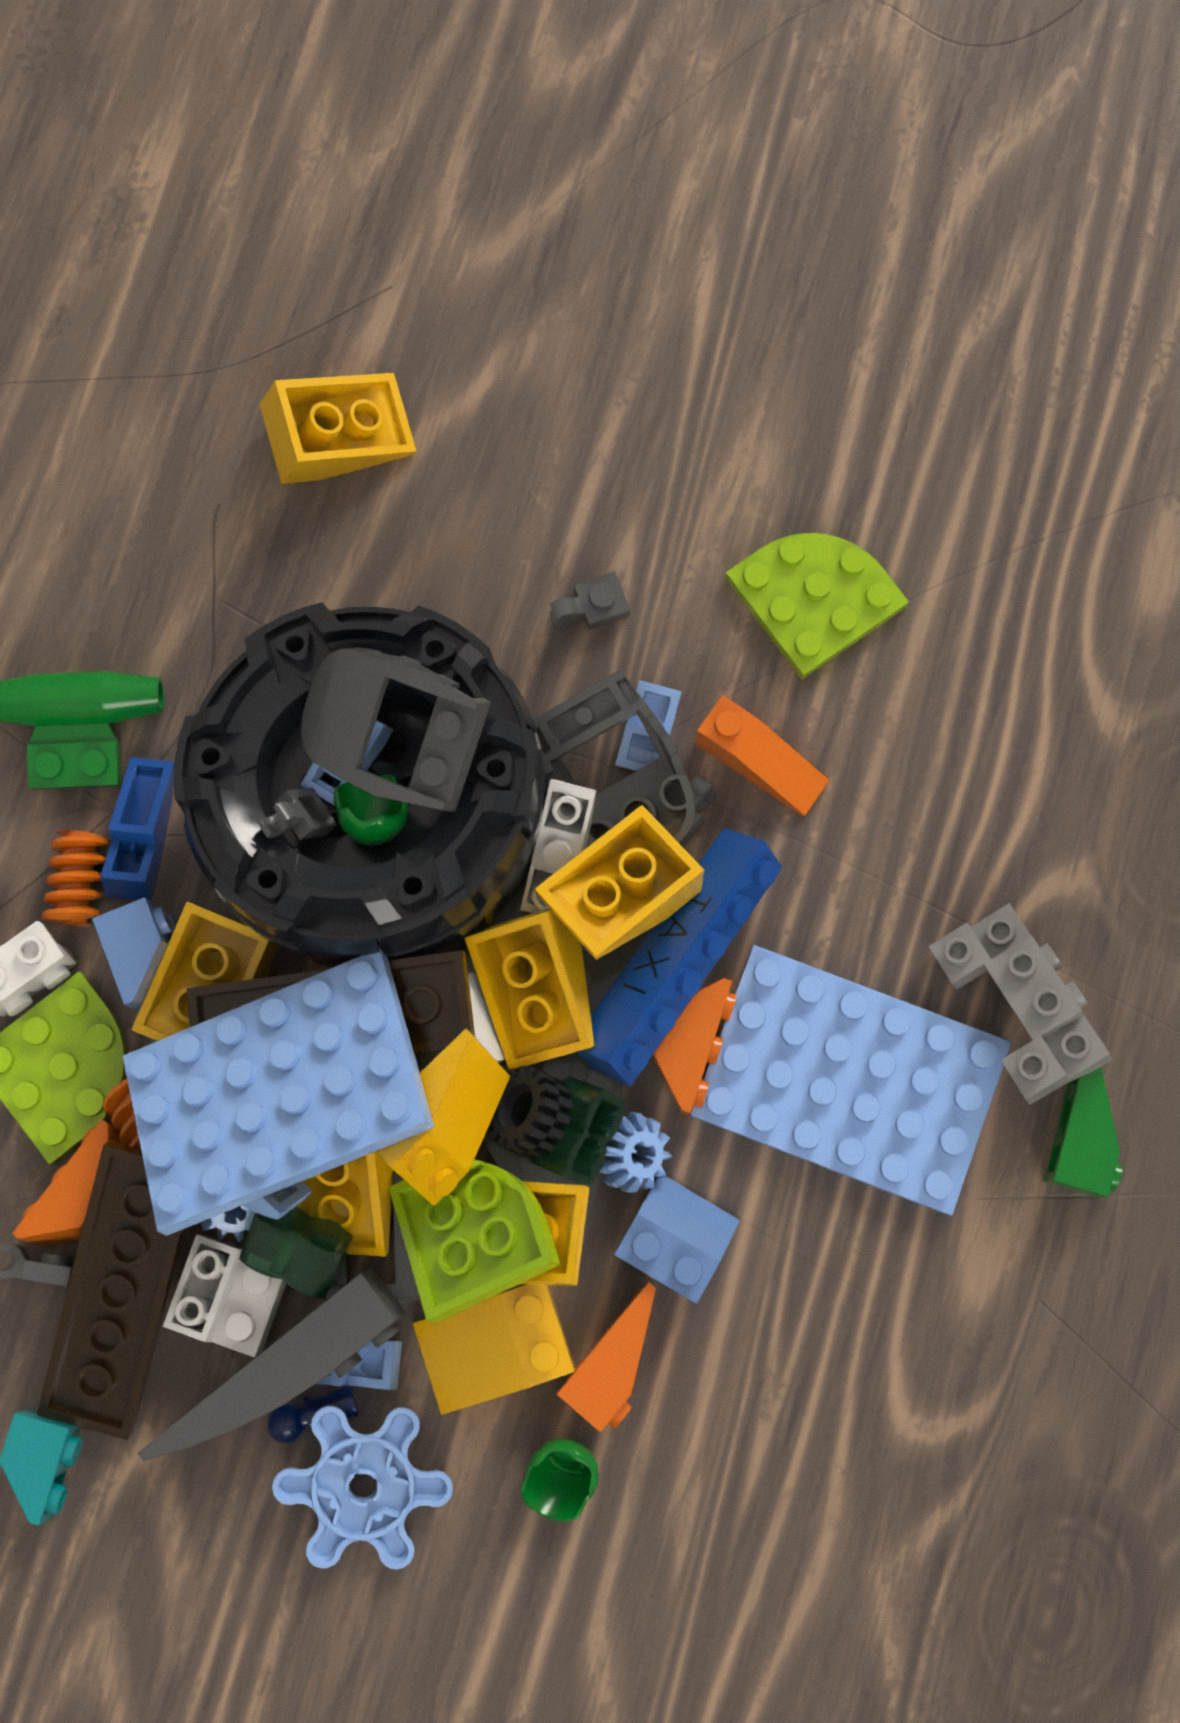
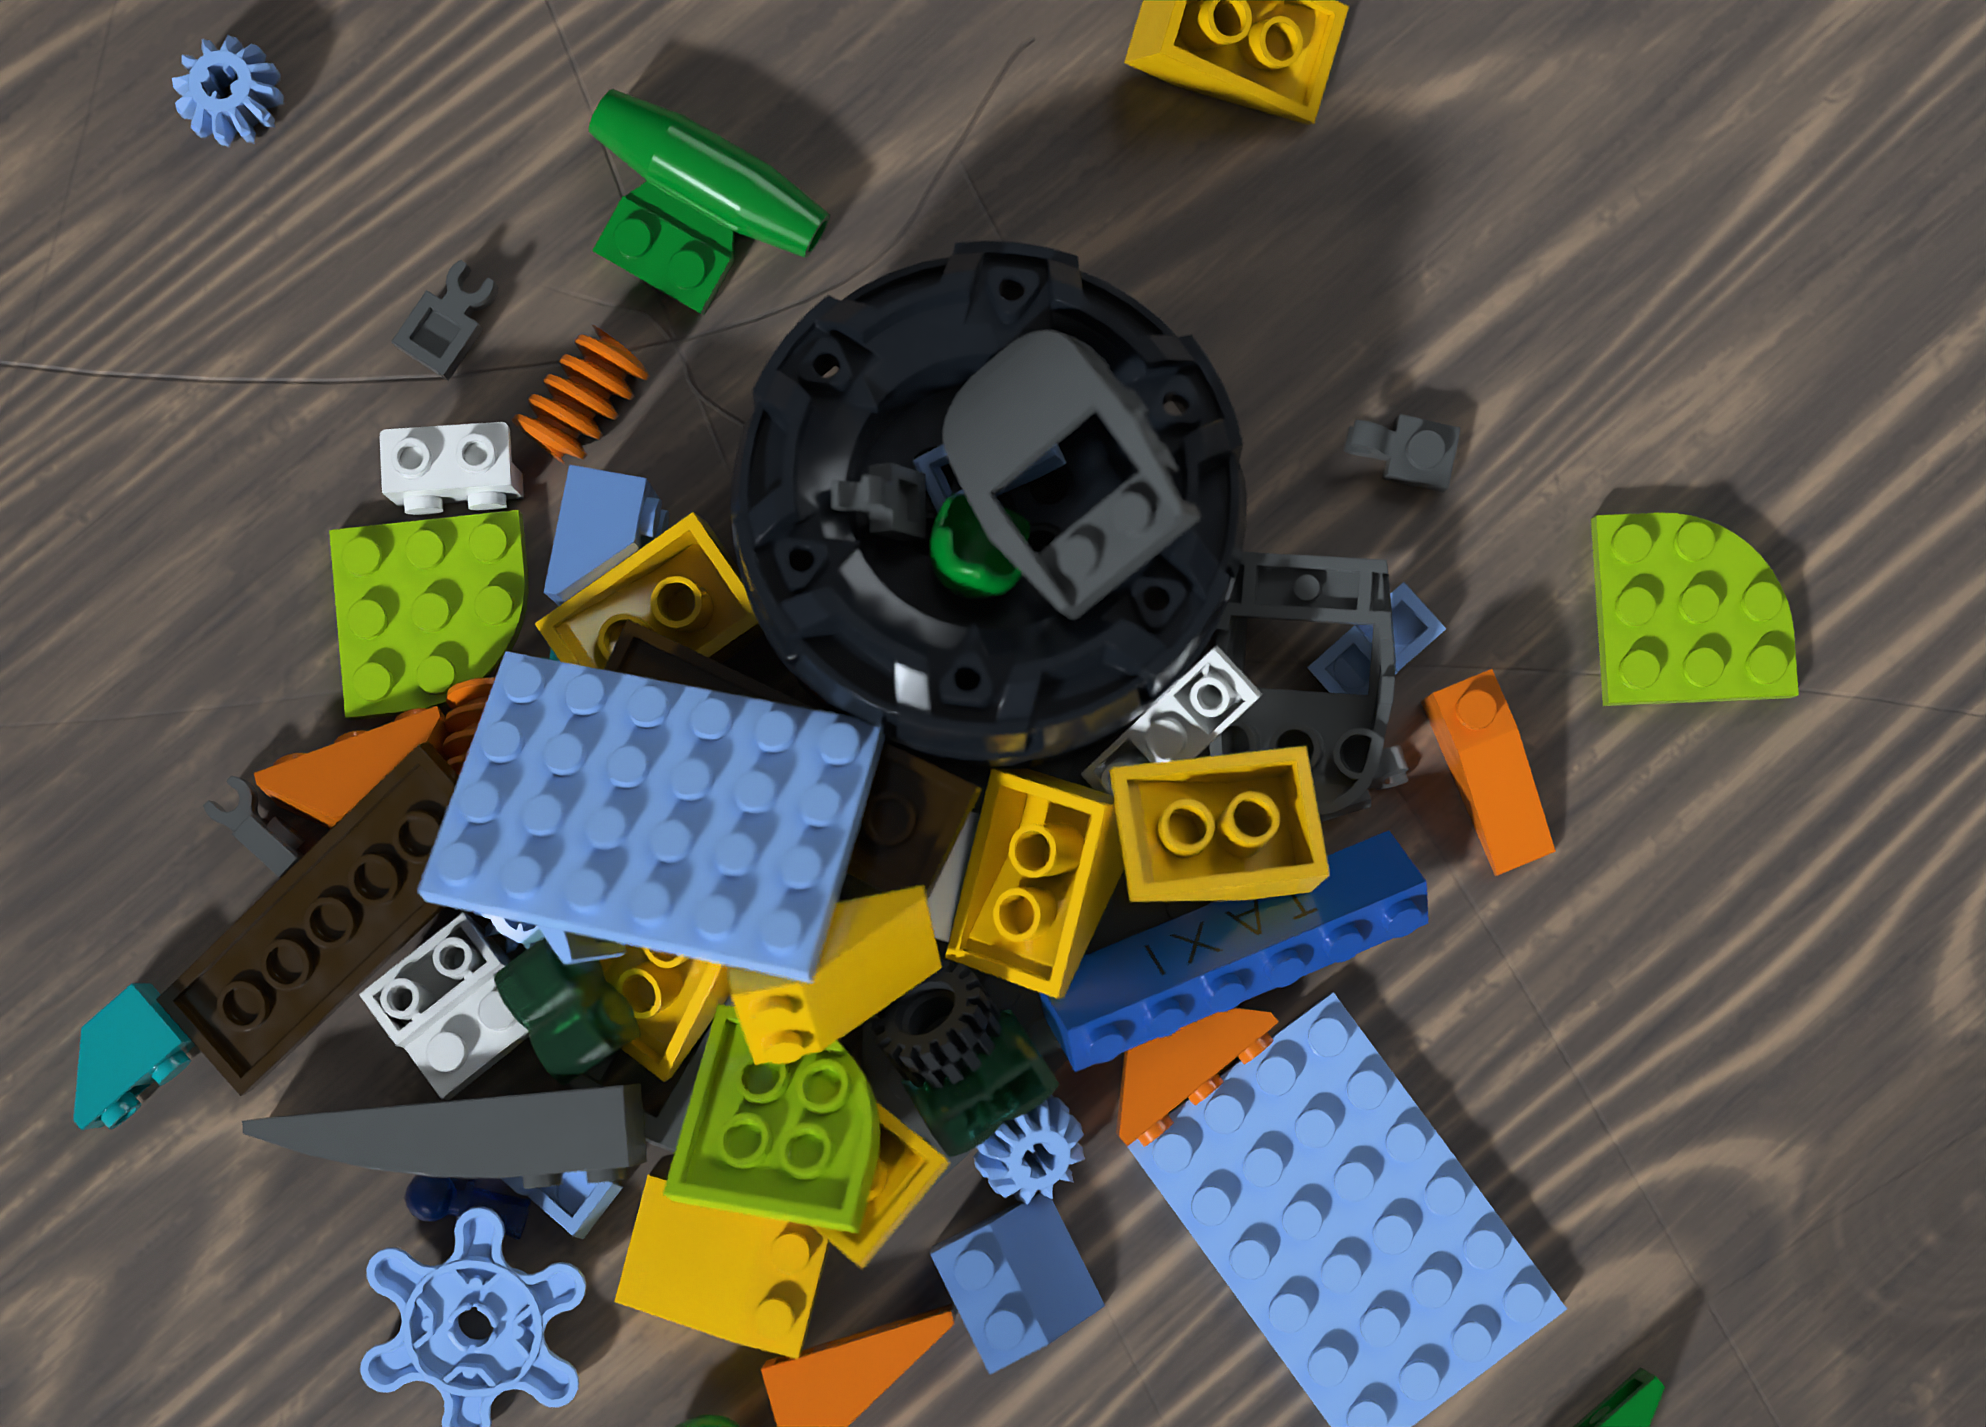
camera: 30 degrees right, 5 degrees up
(138, 829) = (691, 383): blue slope -> none
(1048, 1009) = (1635, 1294): light grey bracket -> none

